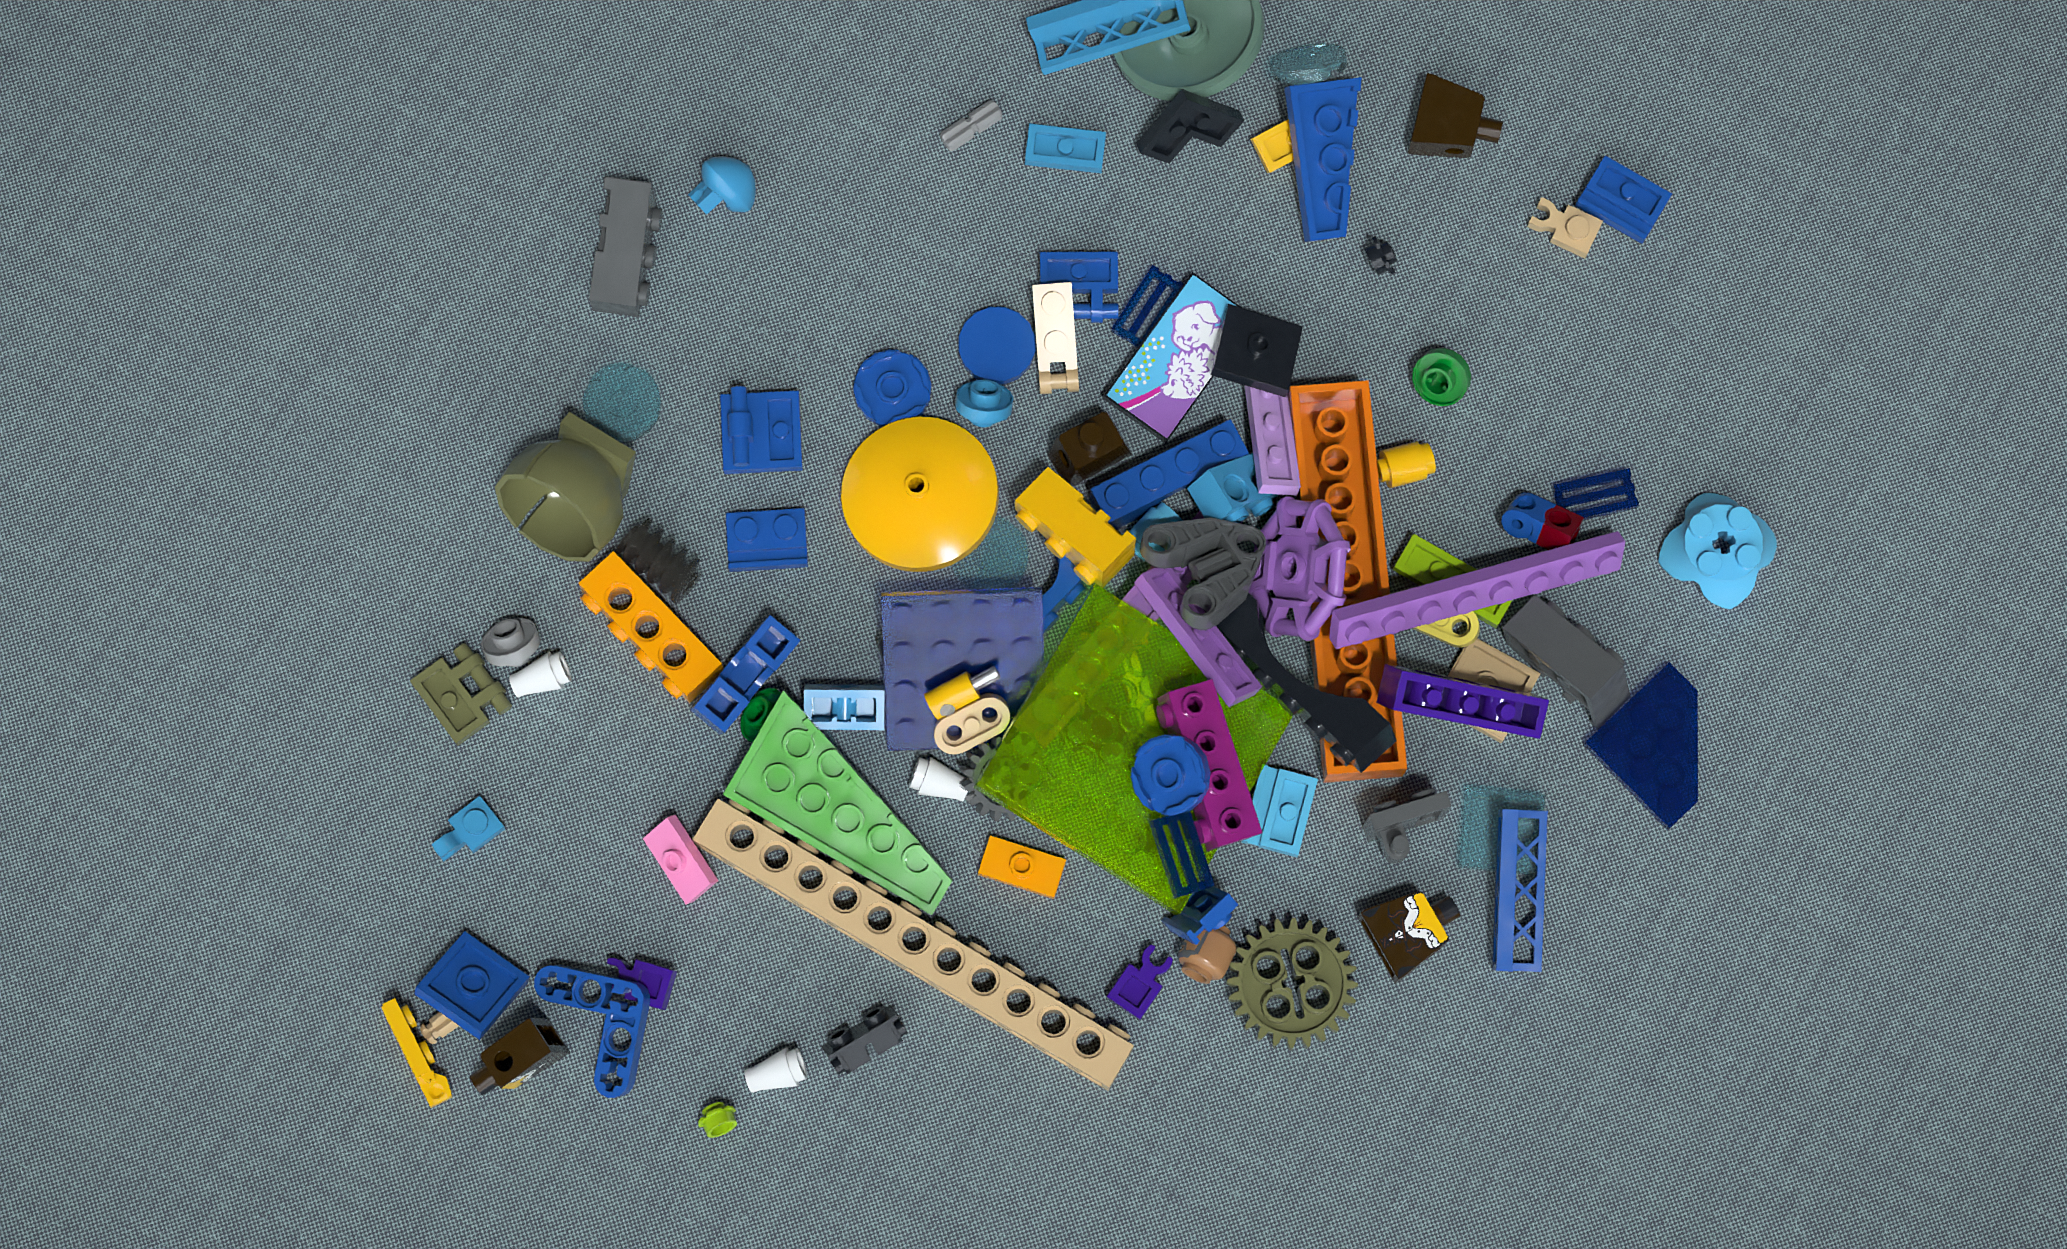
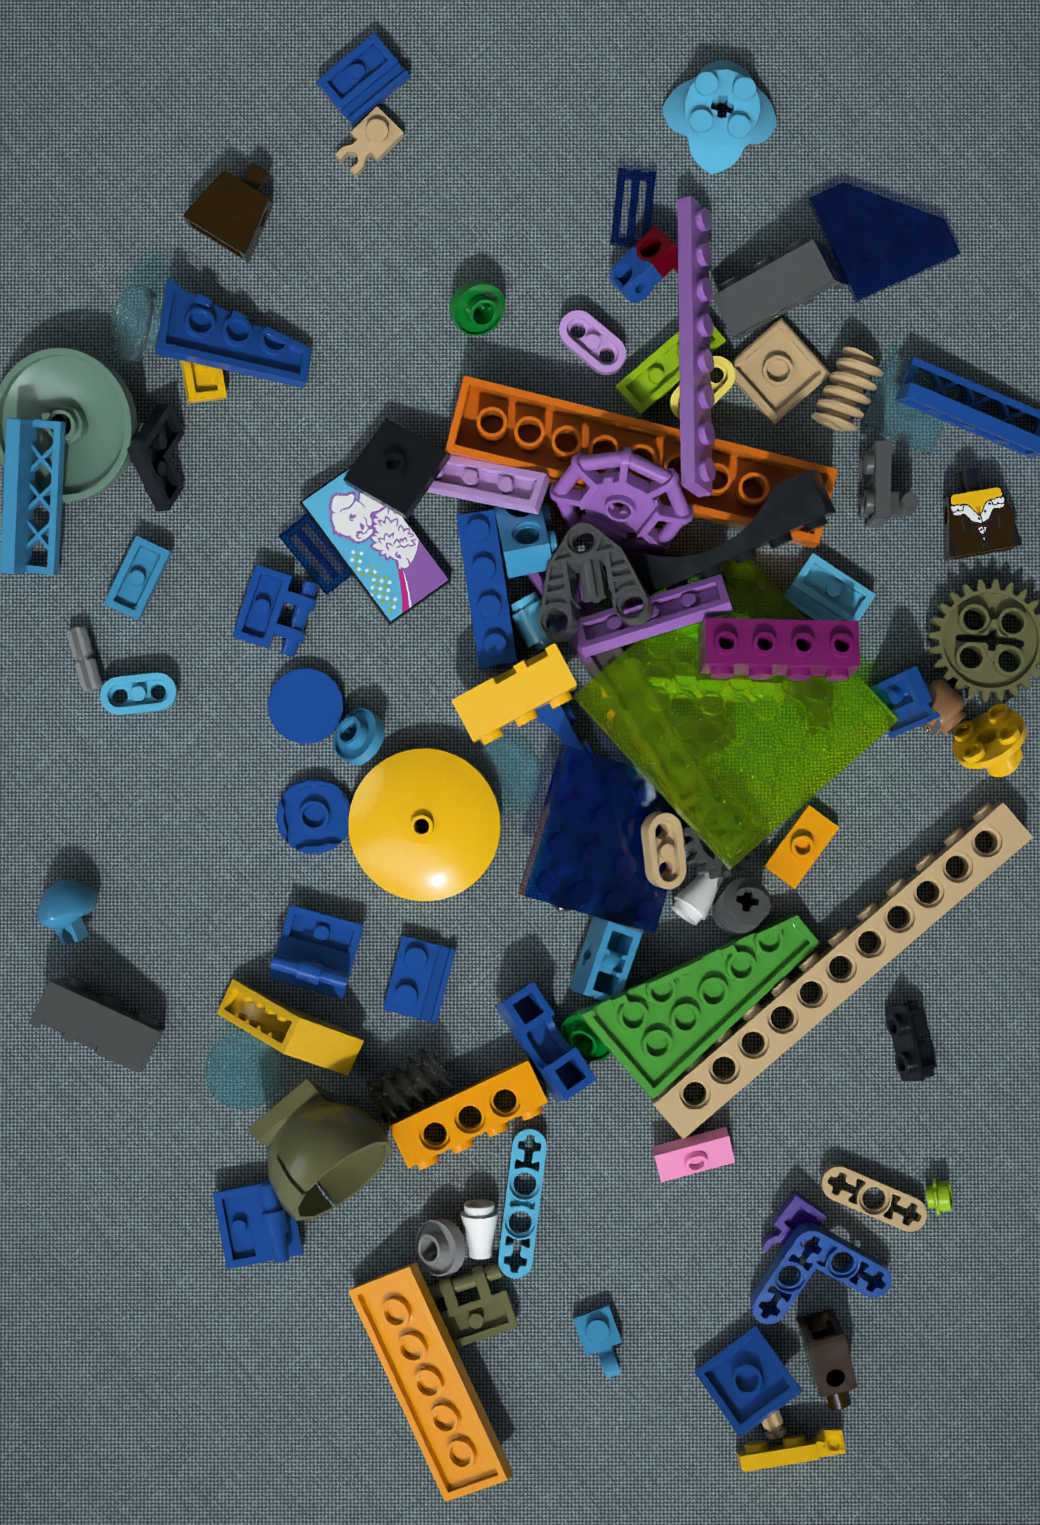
camera: 75 degrees left, 10 degrees up
(375, 675) = (430, 1382): none -> light orange plate
(474, 461) = (255, 1226): none -> blue plate
(580, 716) = (522, 1202): none -> medium azure beam
(677, 431) = (290, 1029): none -> yellow arch
(681, 1083) = (895, 1218): none -> tan beam
(777, 1071) = (915, 1126): white cone -> none
(941, 819) = (741, 907): none -> dark grey piece
(956, 187) = (139, 692): none -> medium azure plate
(958, 692) = (633, 853): yellow piece -> none
(1055, 335) = (317, 649): plate -> none
(1088, 449) = (437, 655): dark brown torso -> none
(1137, 988) = (946, 780): dark purple plate -> none
(1170, 774) = (780, 686): blue tile -> none
(1190, 1016) = (991, 741): none -> yellow plate
(1196, 850) = (881, 700): clear blue tile -> none
(1381, 256) = (342, 322): black plate -> none
(1405, 464) = (546, 369): yellow brick -> none
(1448, 500) = (595, 340): none -> lavender plate
(1462, 701) = (796, 397): dark purple brick -> none
(1490, 760) = (847, 390): none -> tan piece

